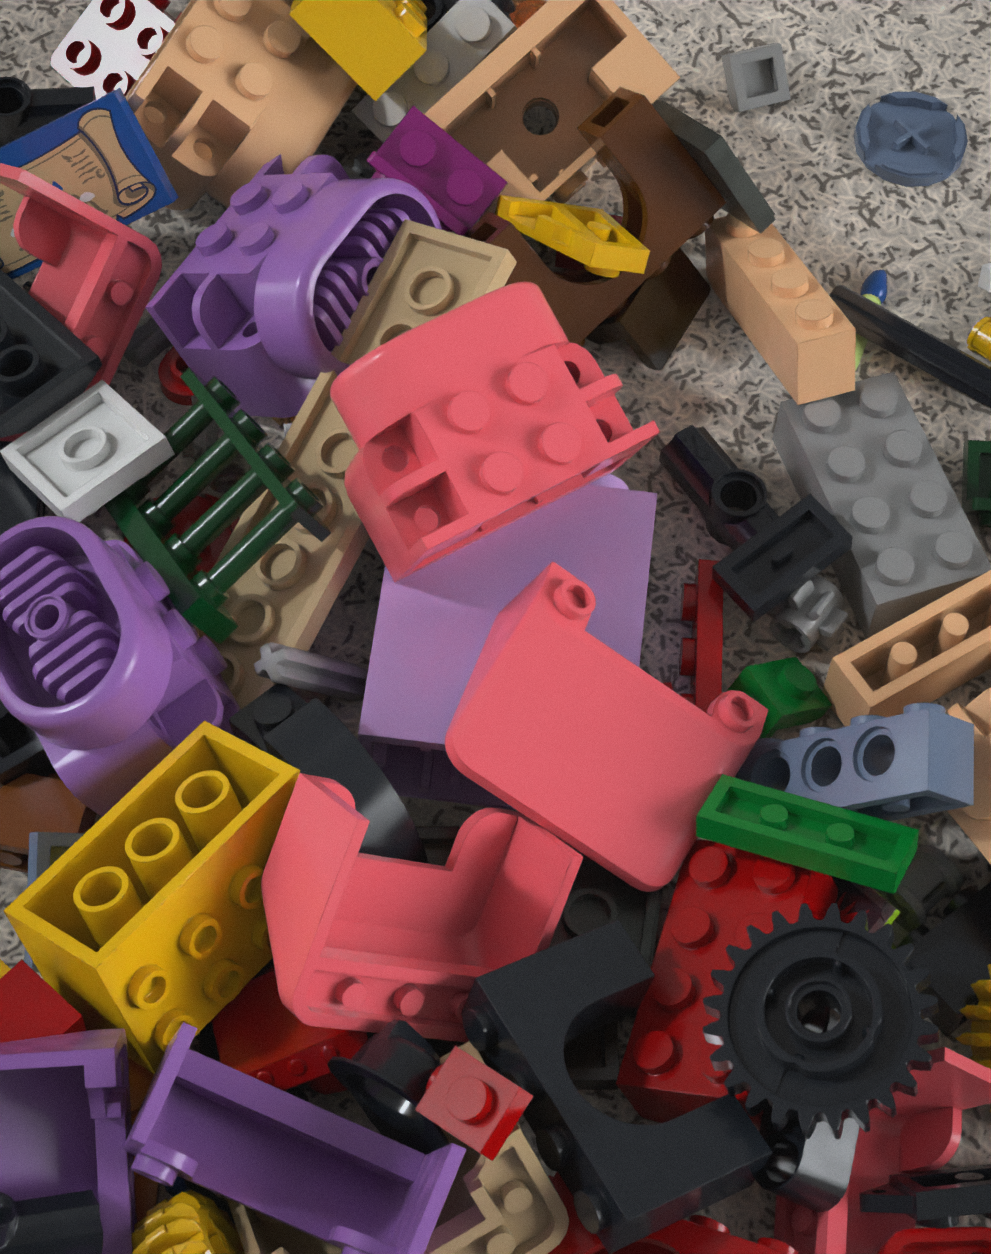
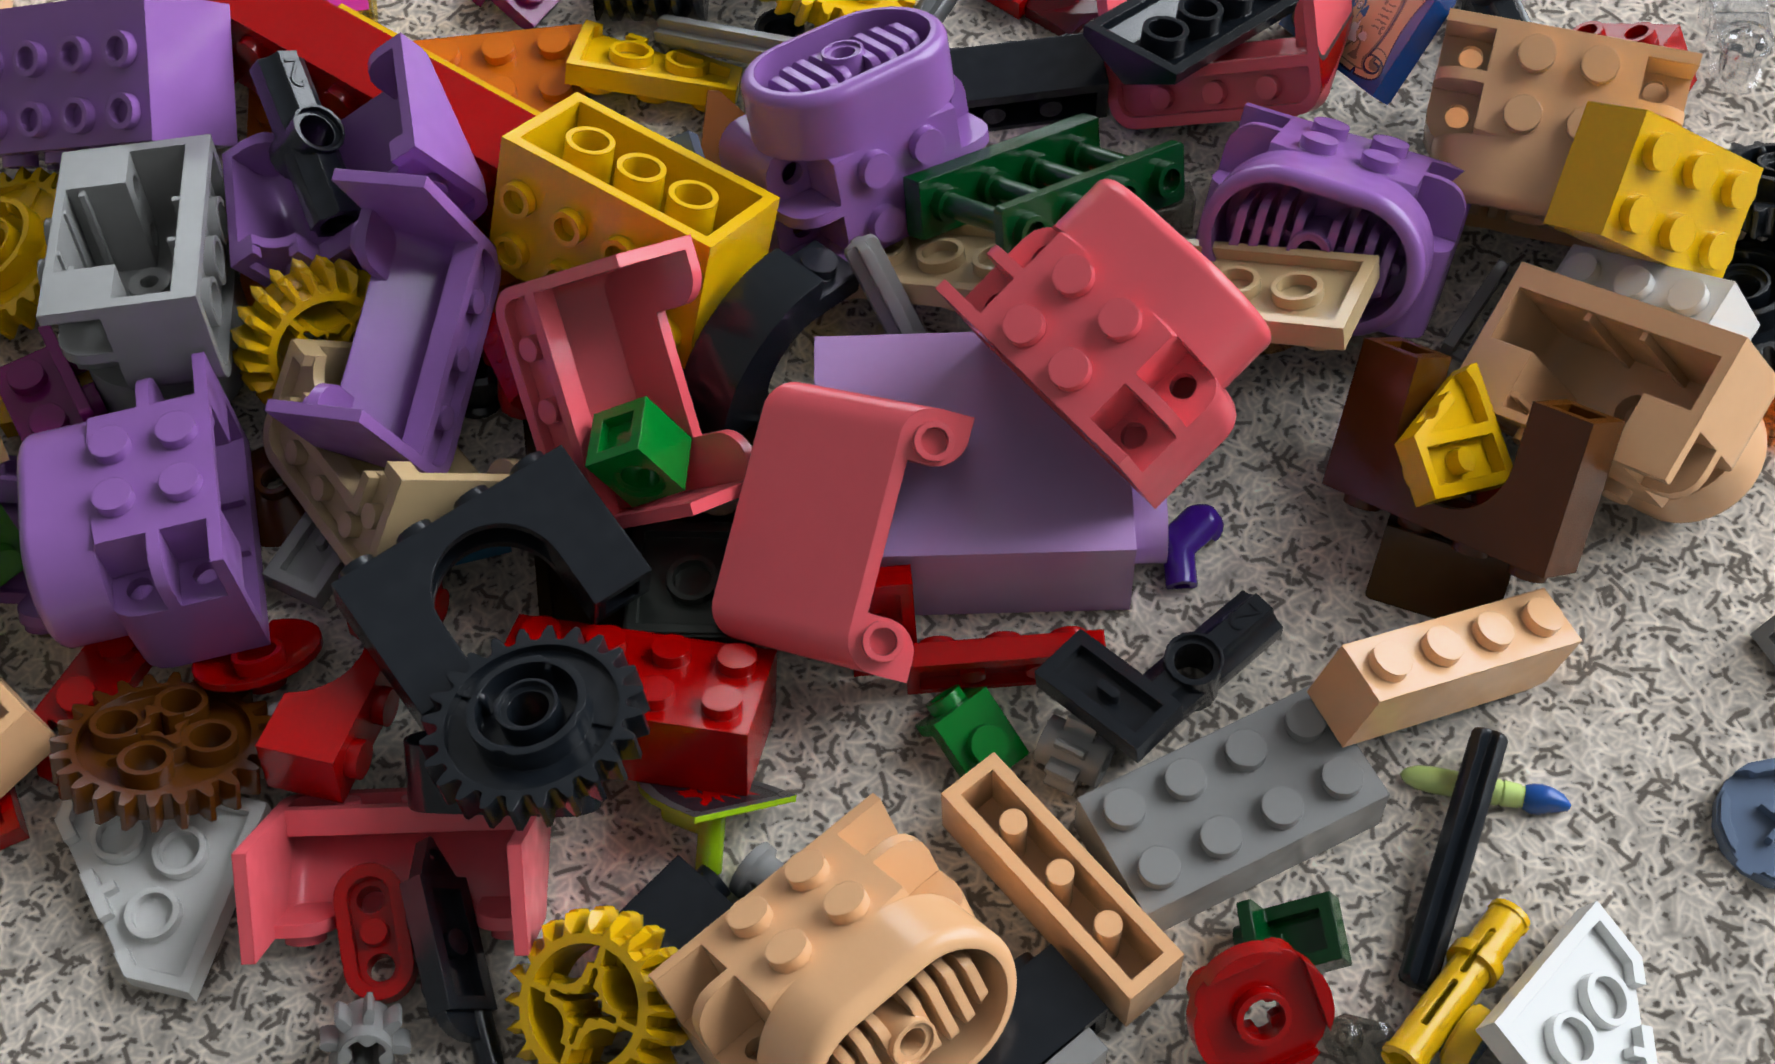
camera: 90 degrees right, 0 degrees up
(87, 452) = (1081, 97): white plate -> none
(390, 1080) = (474, 418): black piece -> none
(441, 169) = (1475, 298): magenta bracket -> none
(473, 1102) = (428, 442): red bracket -> none
(475, 917) = (639, 452): none -> green brick
(720, 167) = (1575, 544): pearl dark grey tile -> none
(807, 833) = (748, 713): green plate -> none
(876, 764) = (830, 758): sand blue brick -> none

